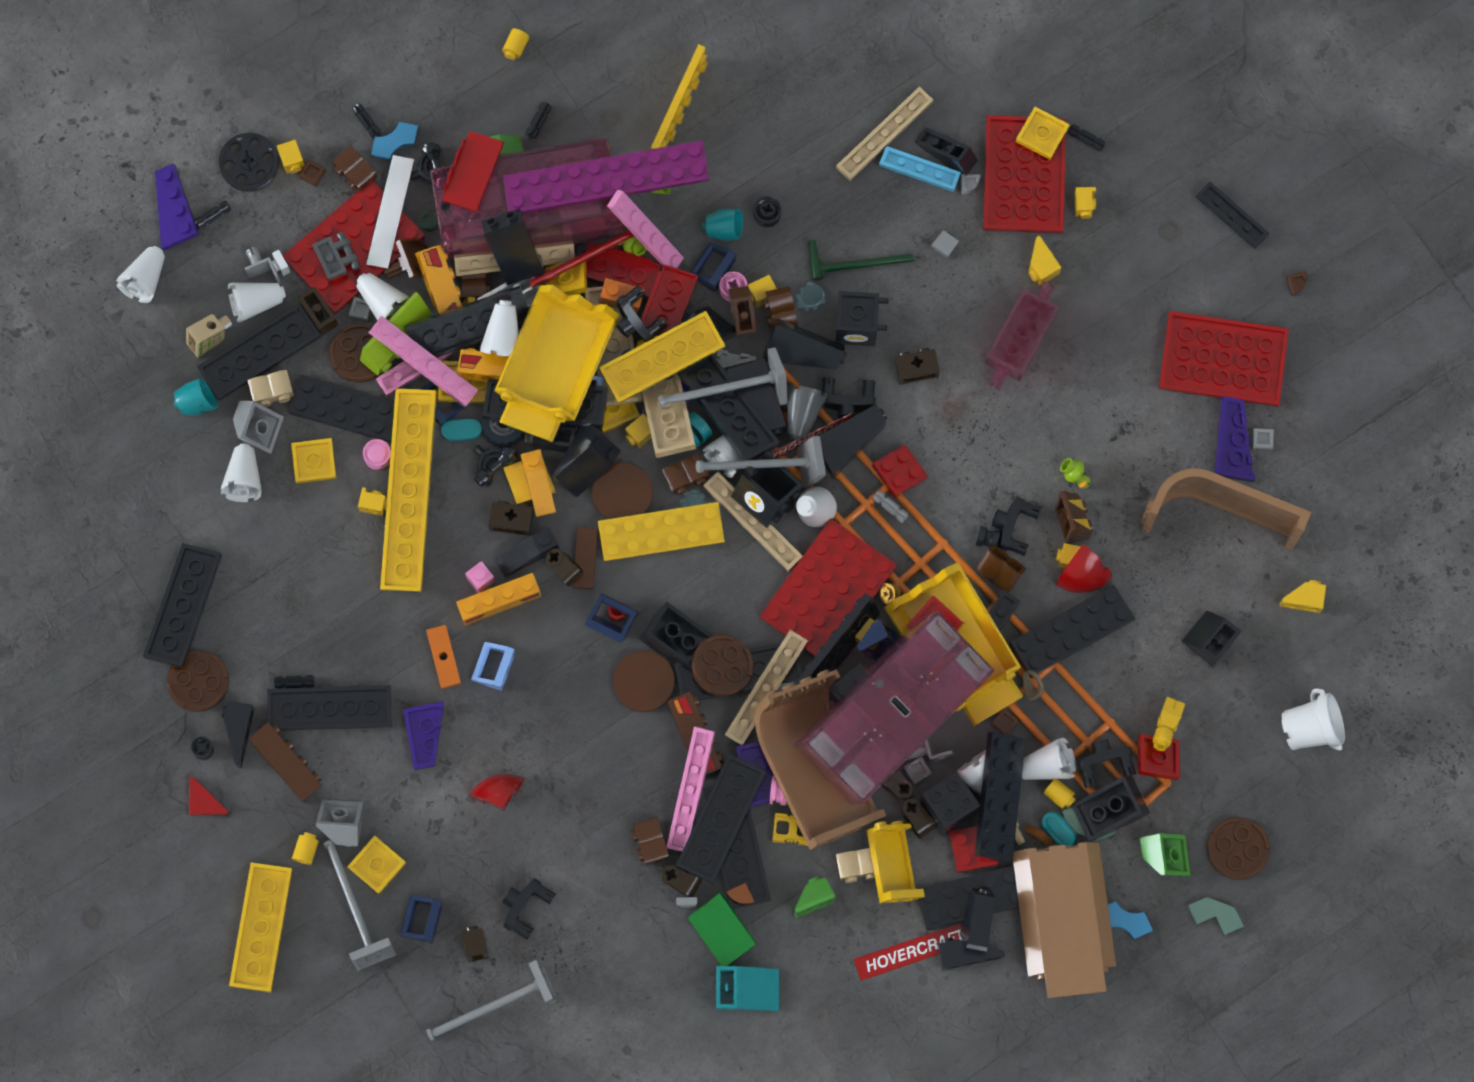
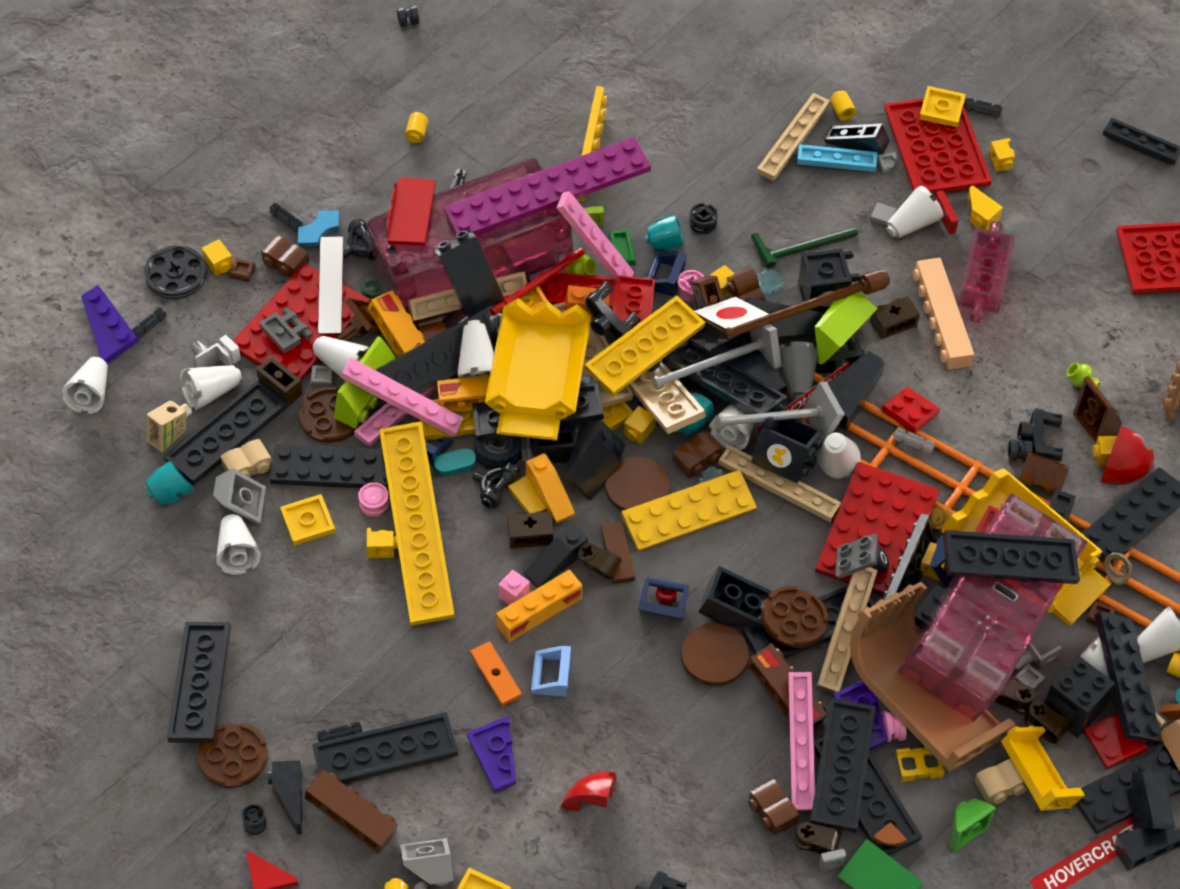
camera: 15 degrees left, 20 degrees down
(680, 226) = (622, 242): none -> green tile
(758, 348) = (739, 317): none -> reddish brown flag
(795, 622) = (861, 555): none -> dark grey plate
(857, 370) = (841, 323): none -> lime slope
(913, 677) = (1010, 557): none -> black plate
(945, 107) = (843, 105): none -> yellow brick
(965, 373) = (943, 314): none -> light nougat brick
(971, 255) = (915, 213): none -> white cone
(1006, 257) = (949, 218): none -> red tile

